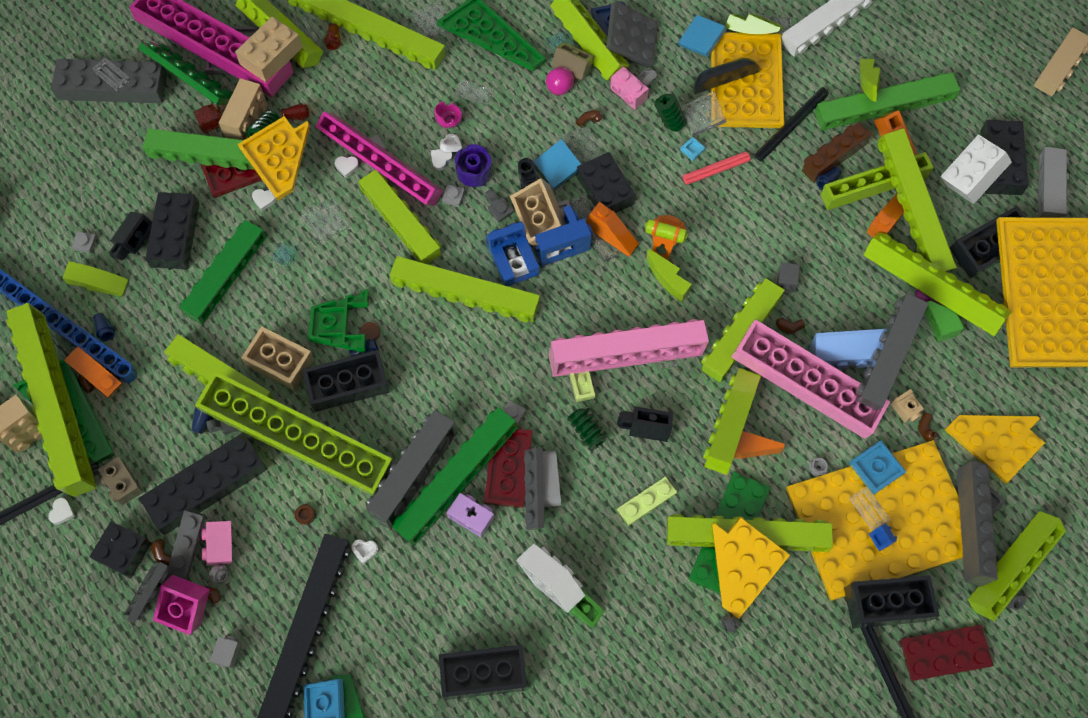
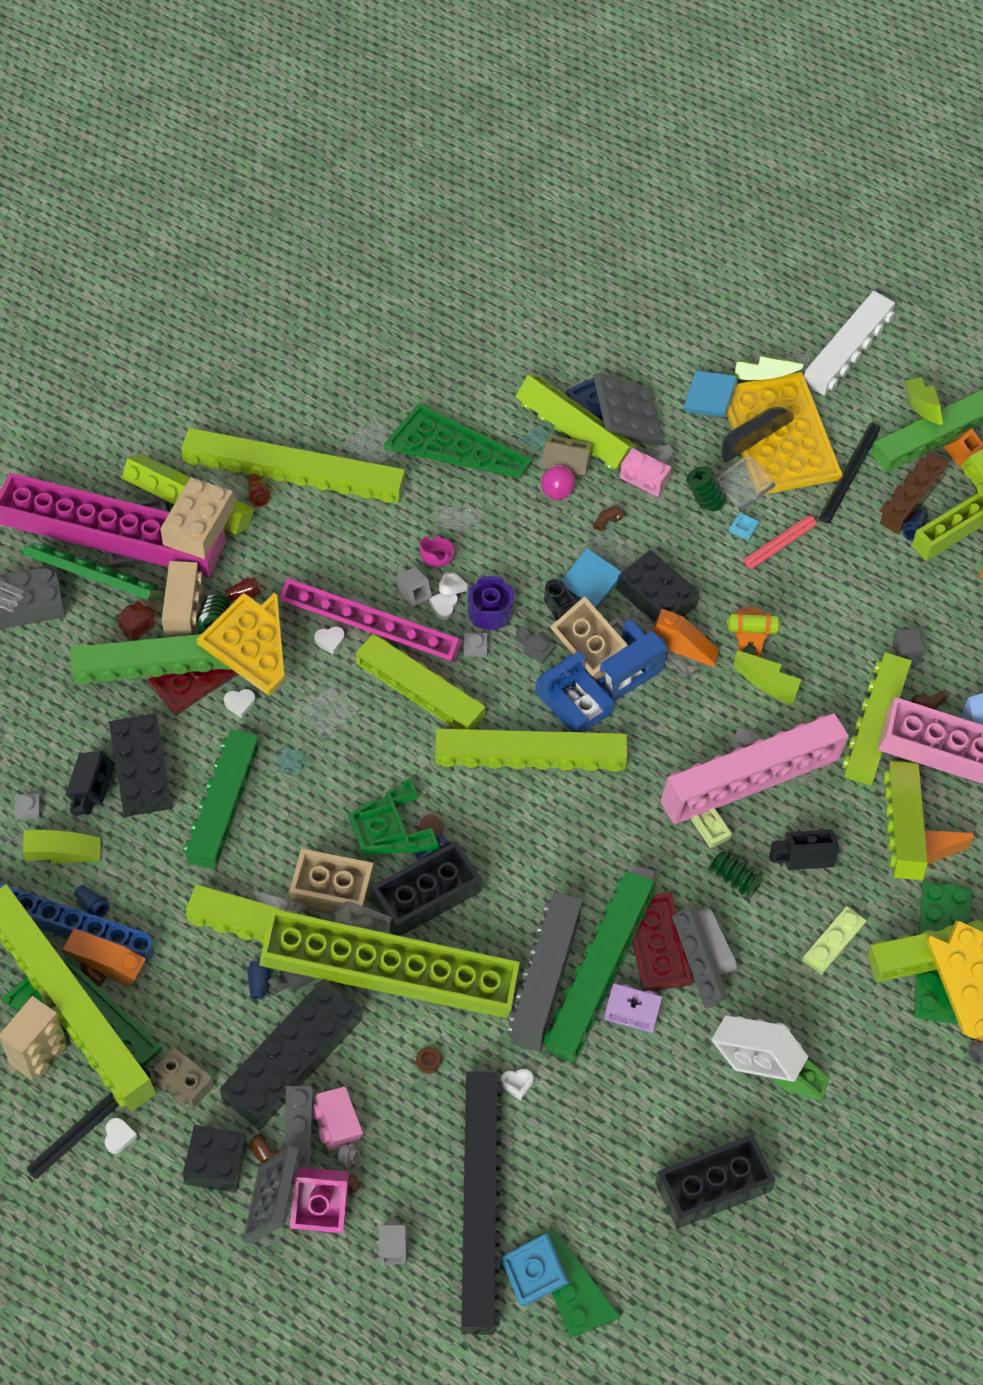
camera: 20 degrees left, 10 degrees down
(234, 362) = (279, 902): none -> clear tile
(285, 395) = (362, 917): none -> clear brick
(420, 139) = (413, 586): none -> light grey brick
(631, 321) = (743, 739): none -> light grey plate

